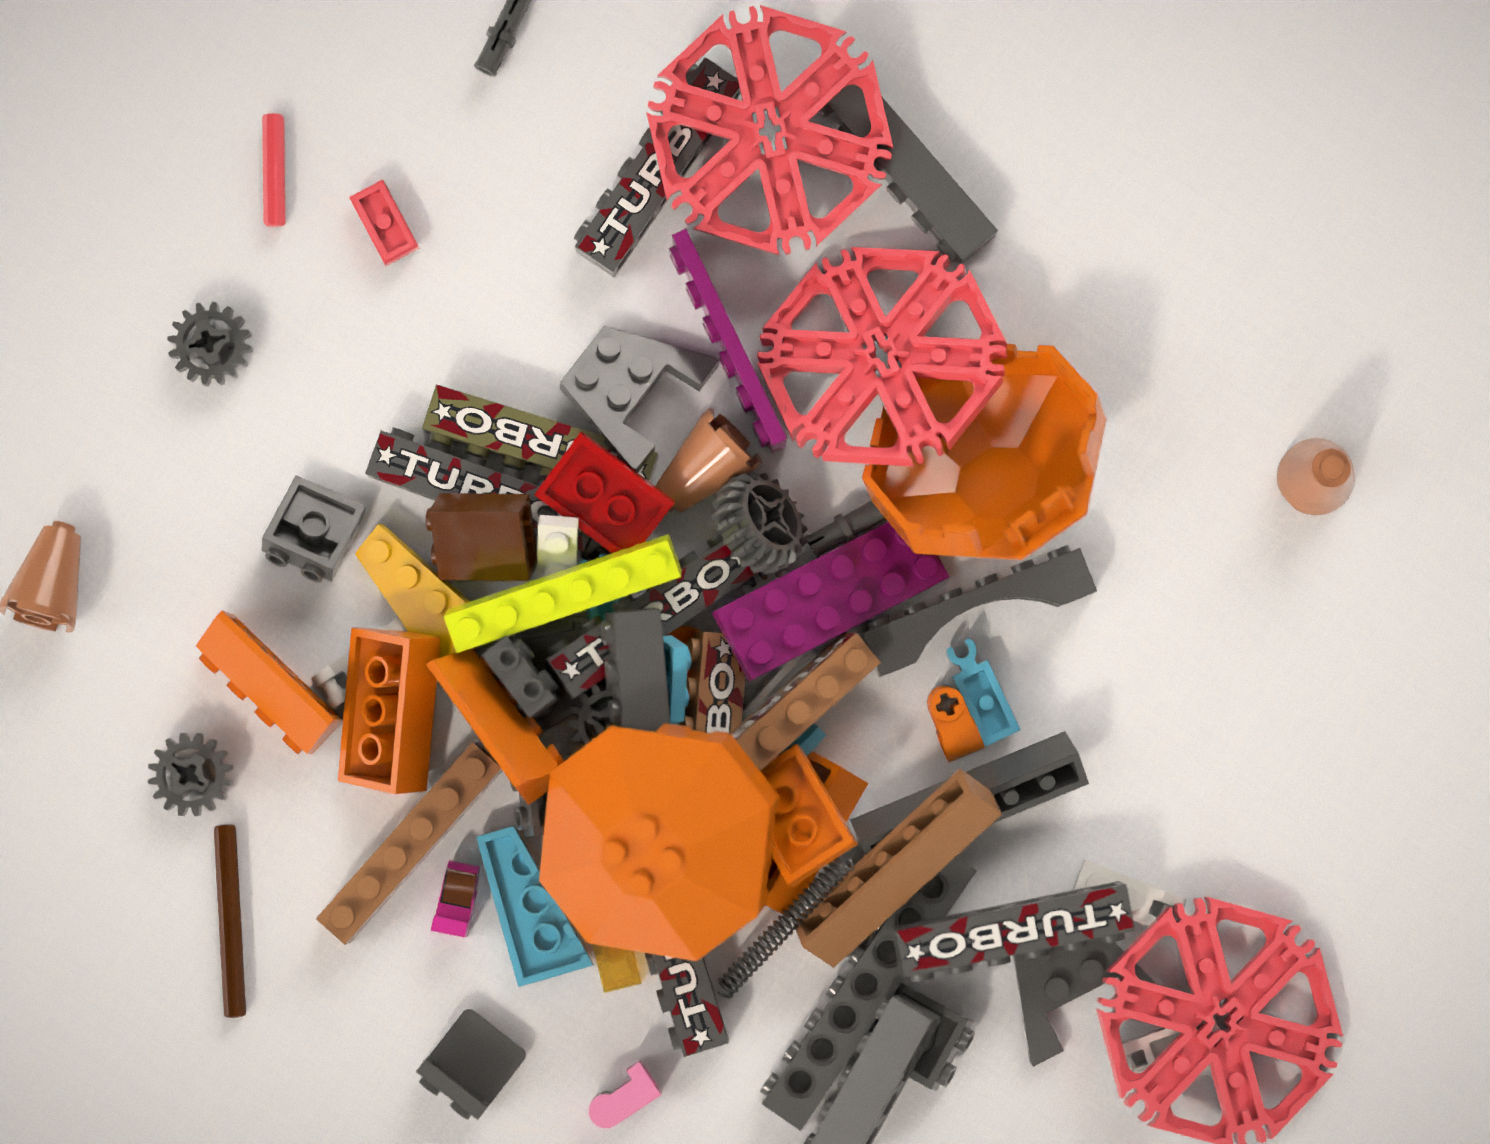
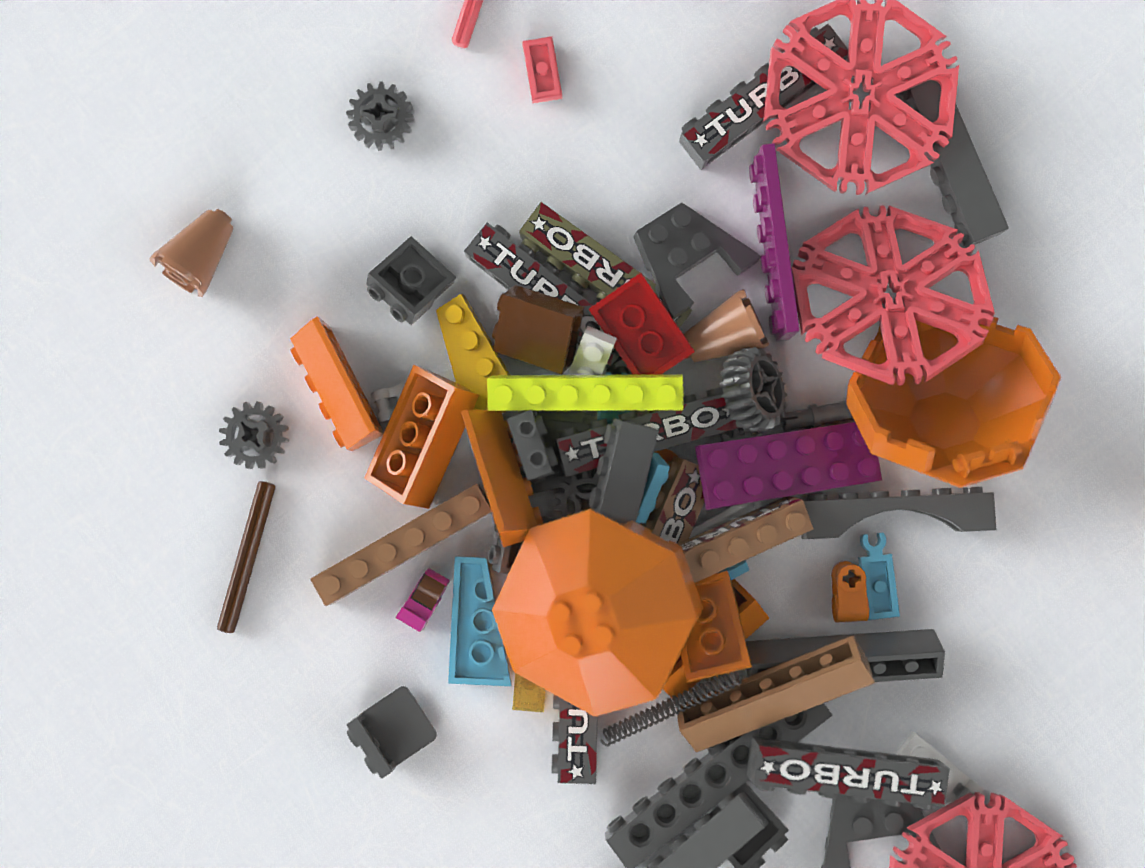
camera: 15 degrees right, 0 degrees up
(613, 1107) = (502, 798): bright pink leg -> none

